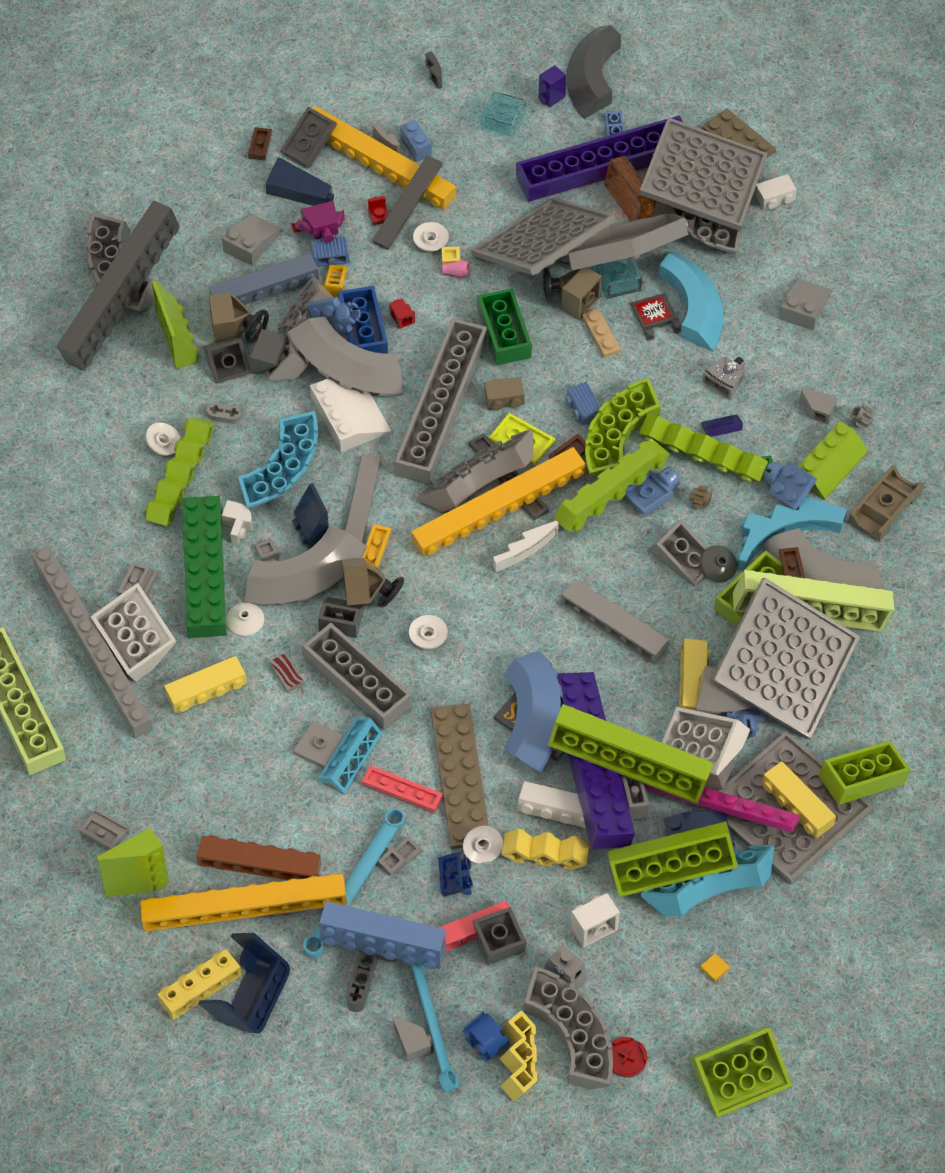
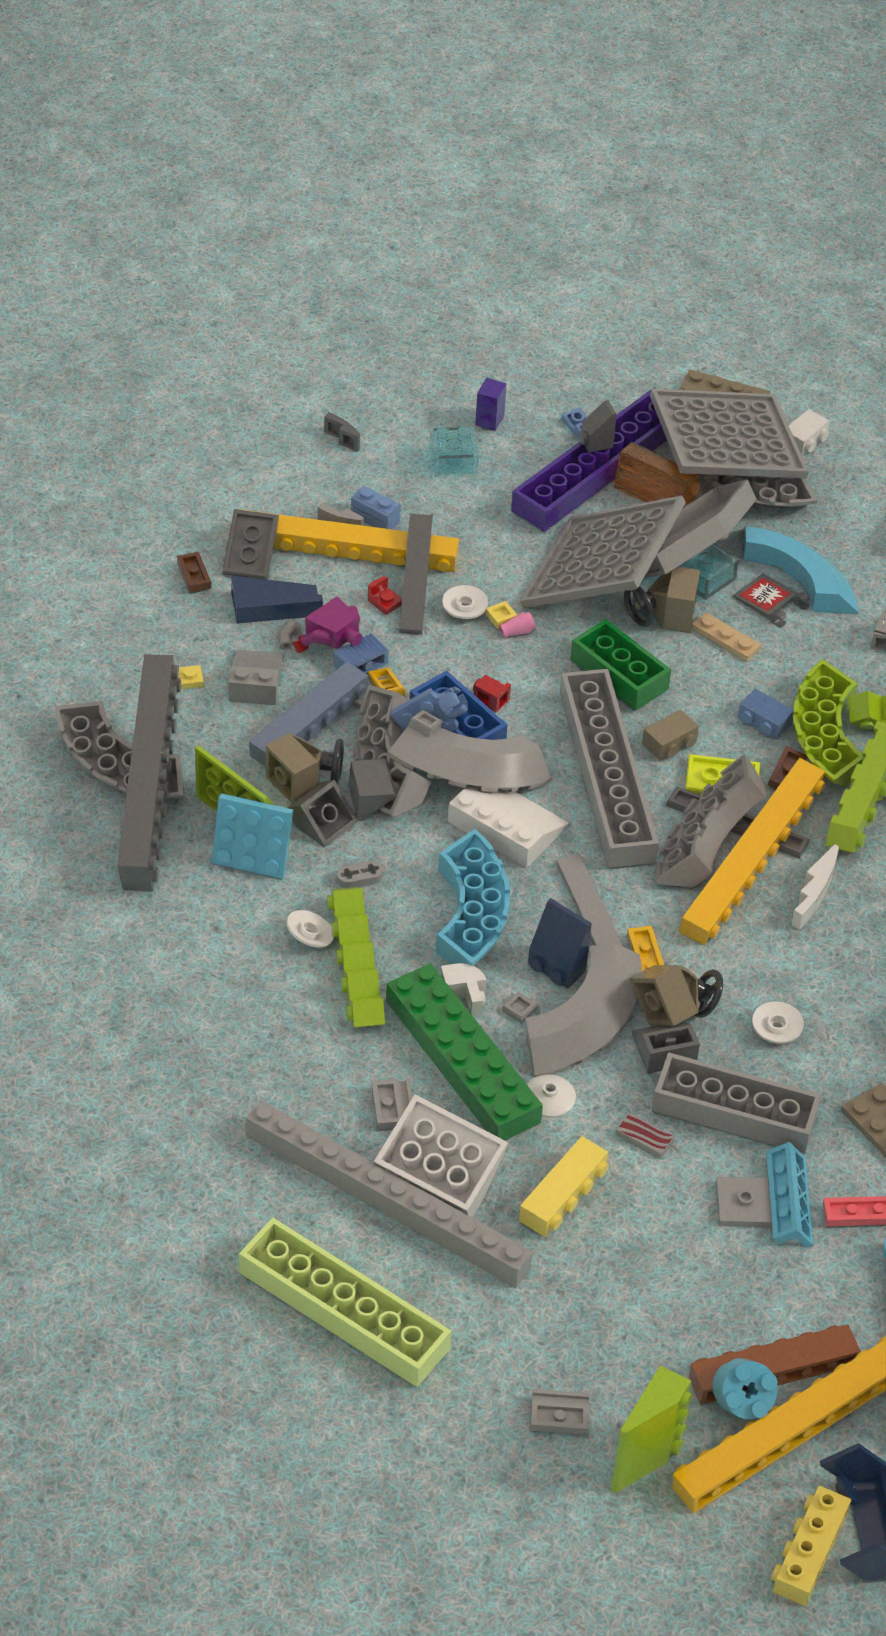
camera: 30 degrees left, 10 degrees down
(161, 358) = (252, 836): none -> medium azure plate
(207, 223) = (191, 677): none -> light yellow plate
(211, 874) = (760, 1392): none -> medium azure brick
(292, 214) = (288, 628): none -> light grey arm
(320, 321) = (425, 723): none -> light grey tile
(585, 68) = (527, 393): dark grey brick -> none
(604, 137) = (599, 428): none -> dark grey slope

